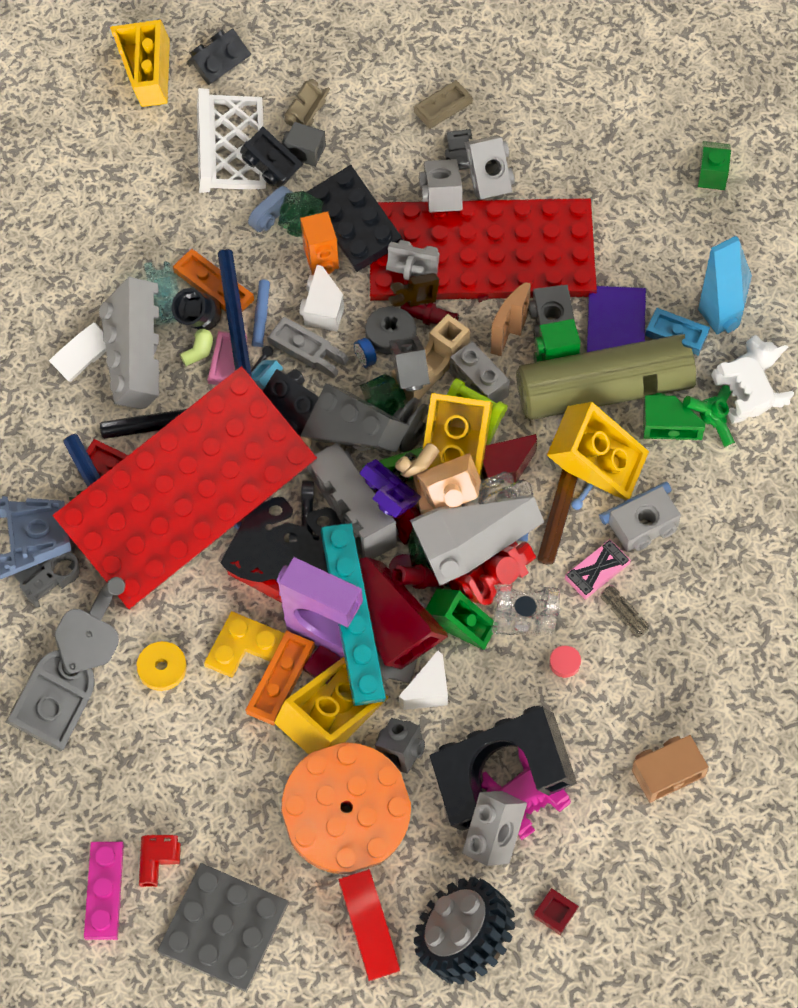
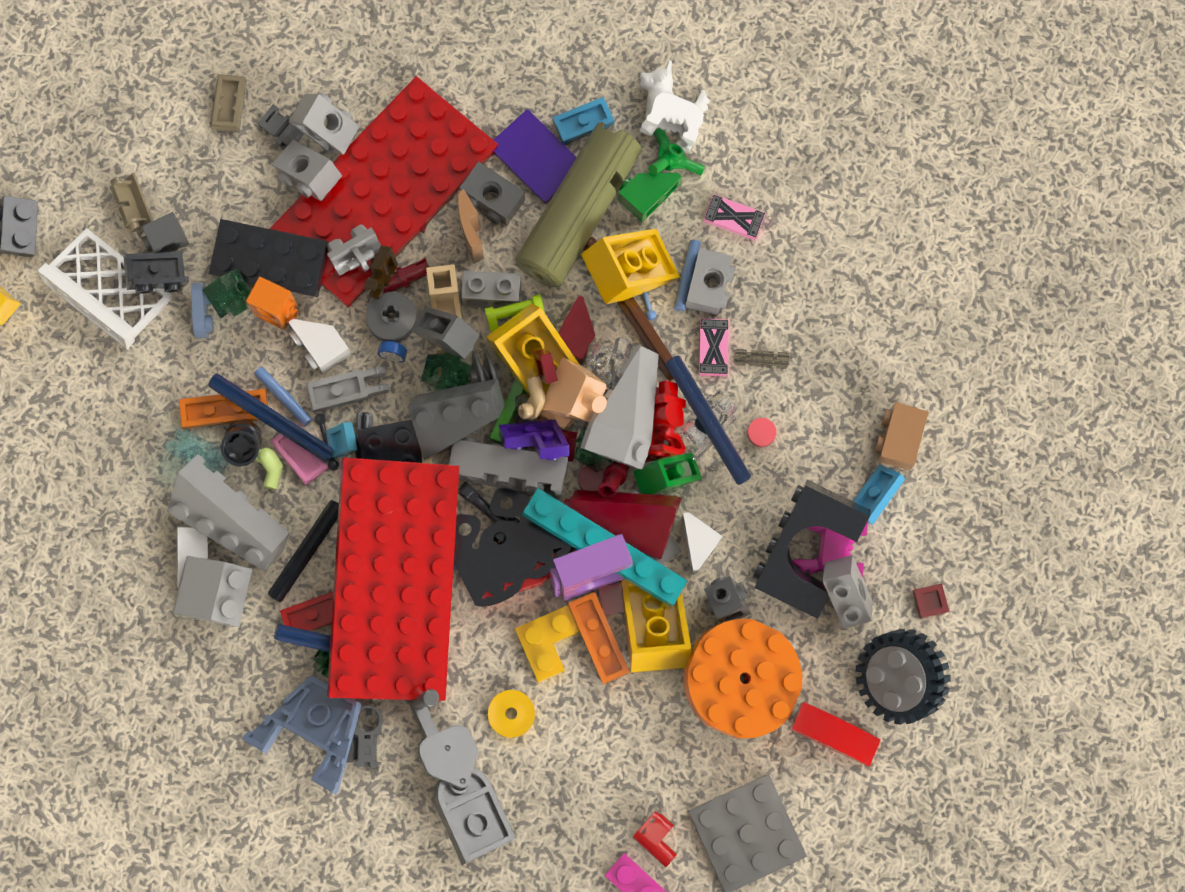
camera: 55 degrees left, 15 degrees up
(66, 381) = (212, 591): none -> light grey slope
(449, 444) = (545, 366): none -> dark red tile
(528, 602) = (708, 420): none -> dark blue axle
(557, 340) = (523, 215): green brick -> none
(602, 789) = (879, 491): none -> dark azure plate
(717, 497) = (734, 217): none -> tile
(725, 286) = (594, 63): dark azure wedge -> none

